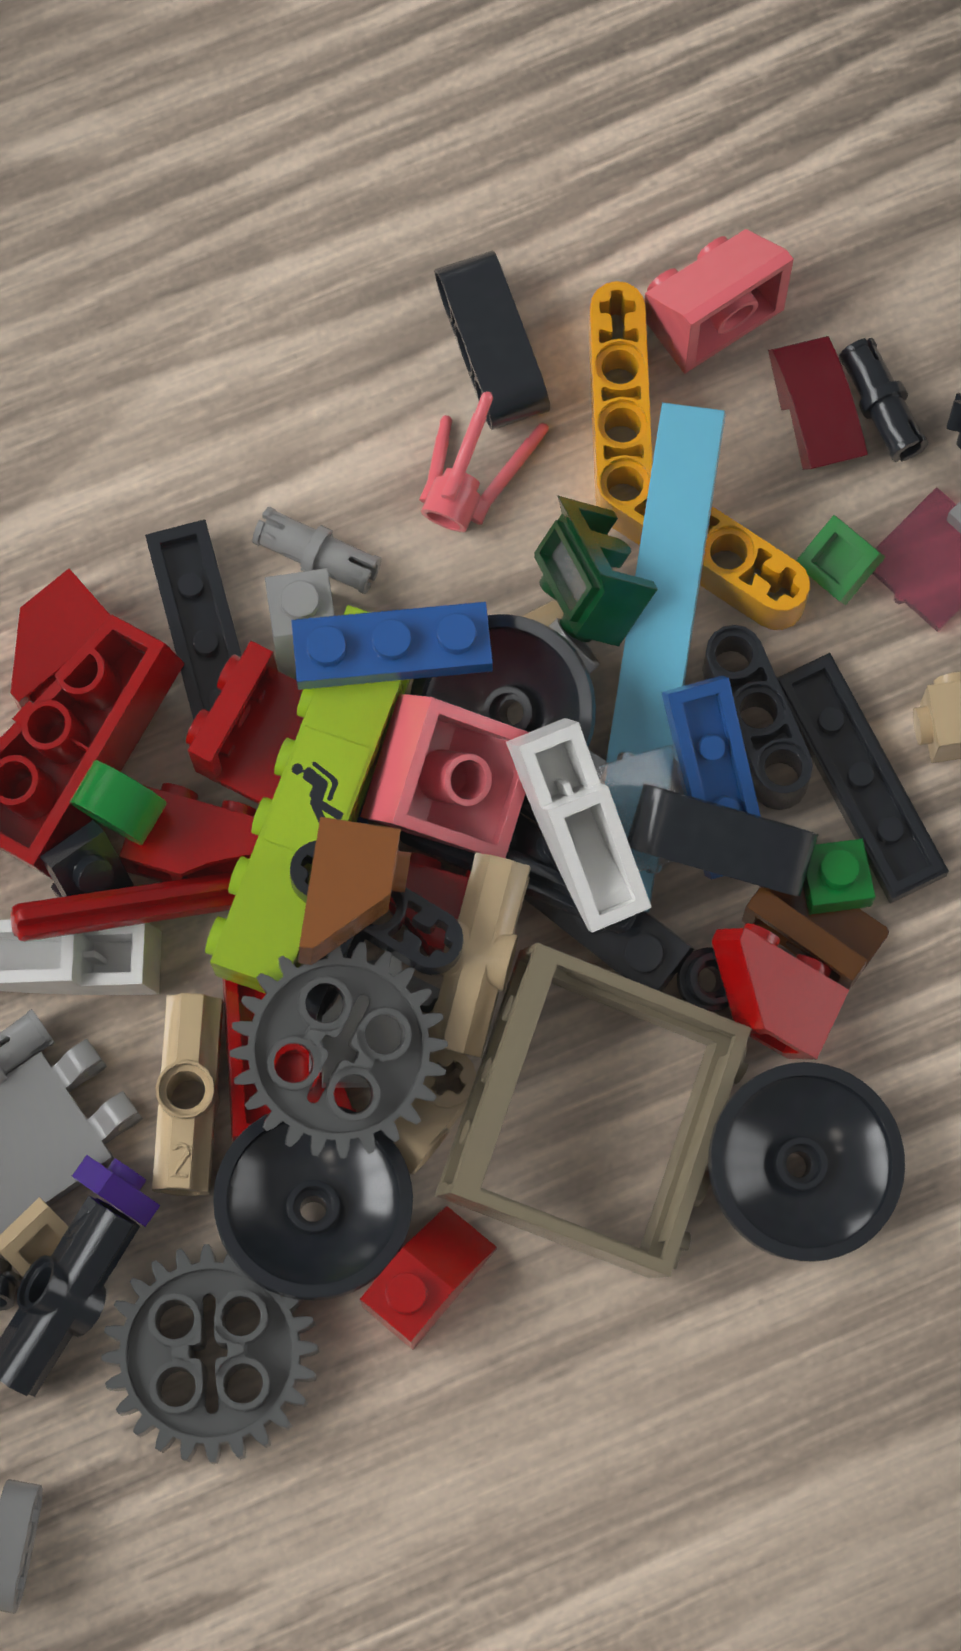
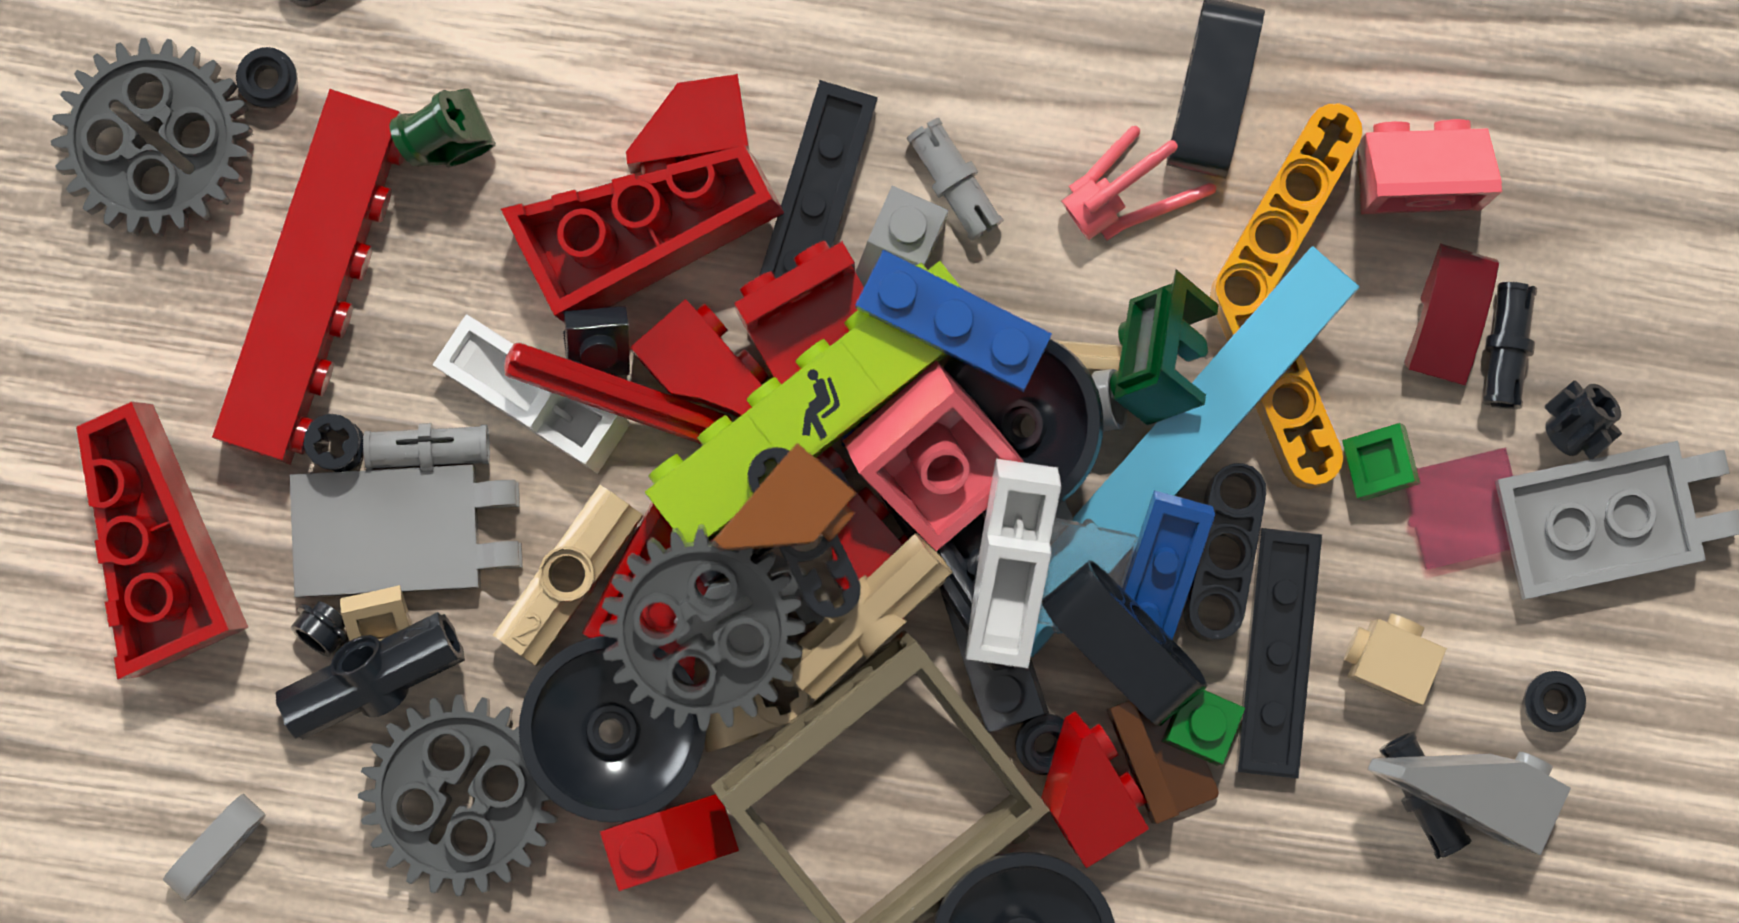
camera: 25 degrees right, 10 degrees up
(118, 802) = (653, 308): green piece -> none
(118, 1186) = (465, 617): dark purple plate -> none

